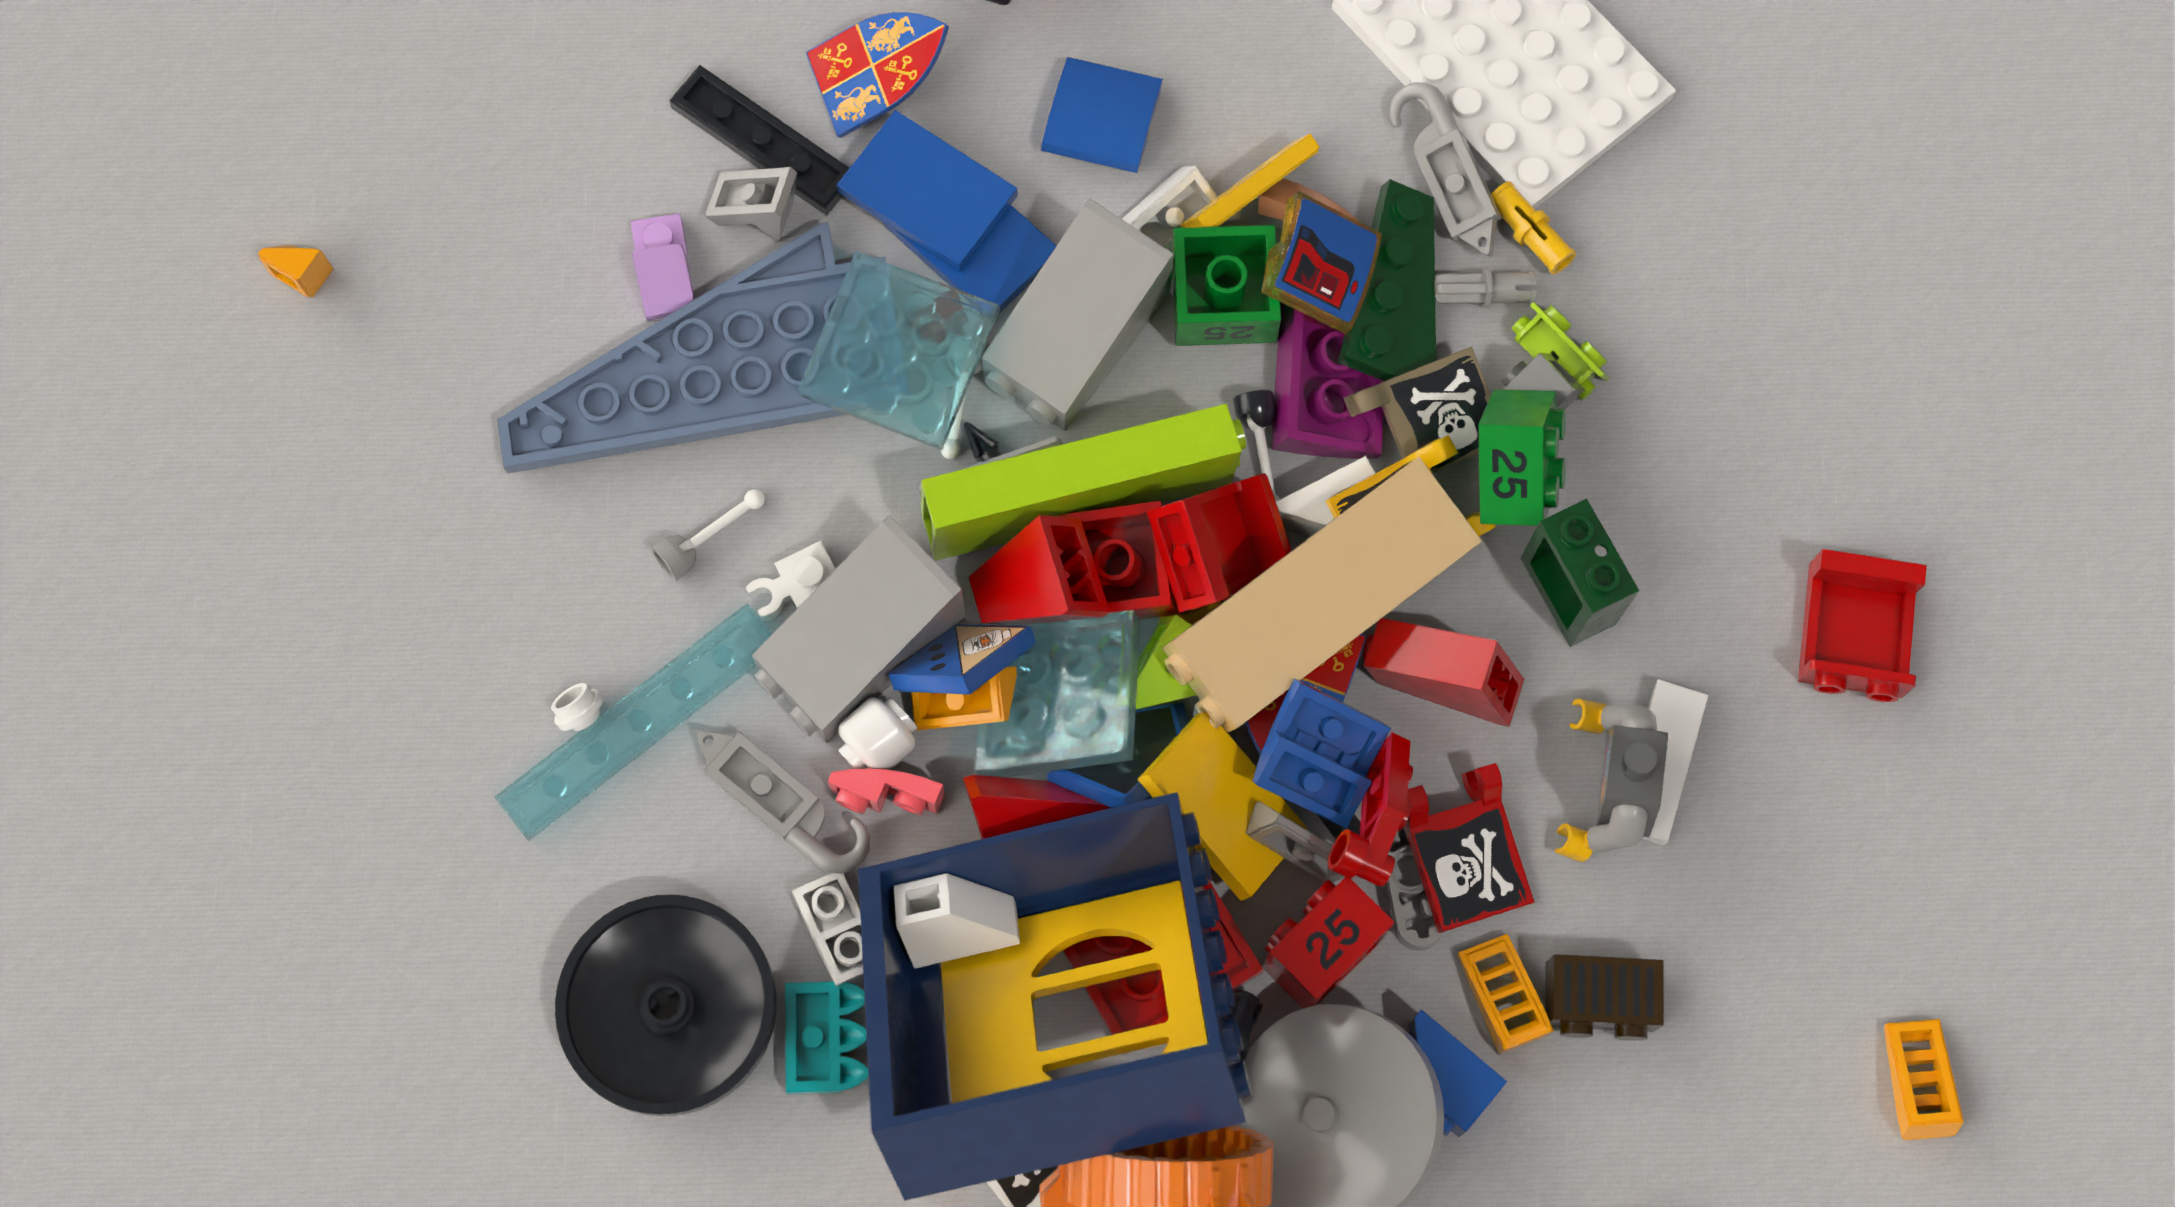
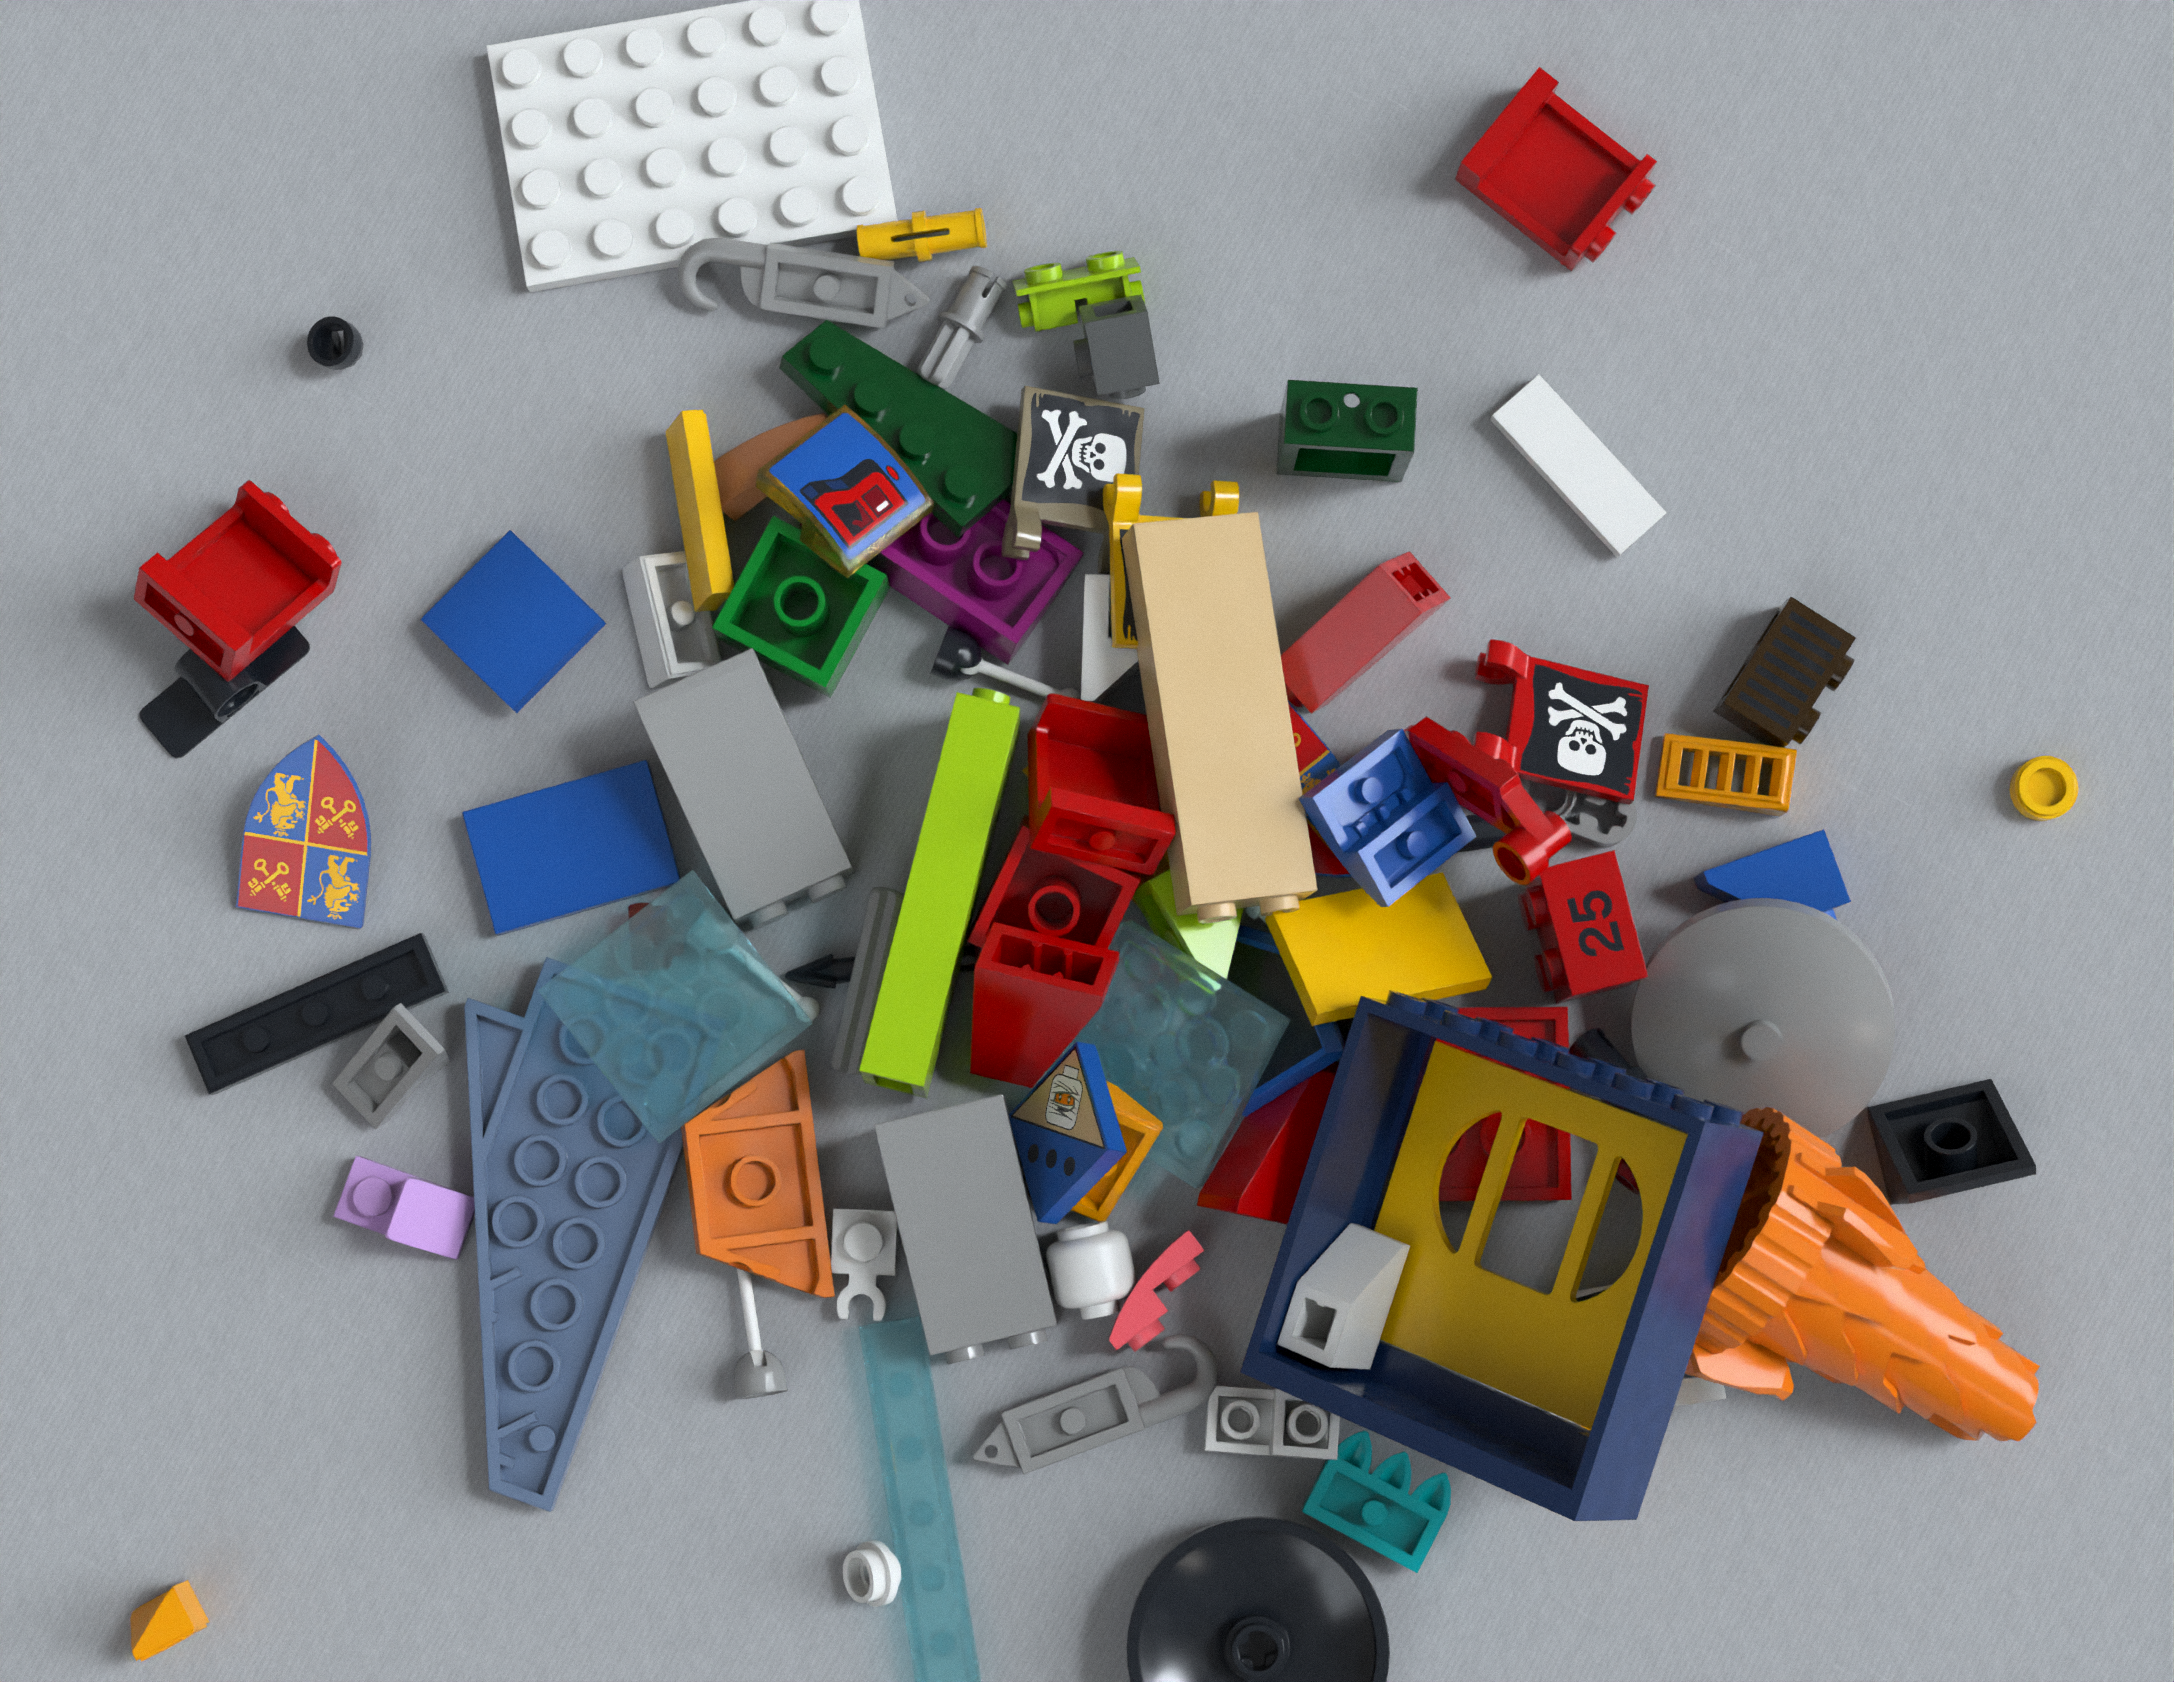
camera: 60 degrees left, 10 degrees up
(811, 479) = (760, 1181): none -> orange wing
(927, 190) = (494, 866): blue tile -> none
(1291, 841) = (1453, 896): light grey slope -> none
(1519, 457) = (1190, 414): green brick -> none
(1629, 779) = (1585, 511): torso -> none
(1911, 1124) = (2056, 441): light orange slope -> none

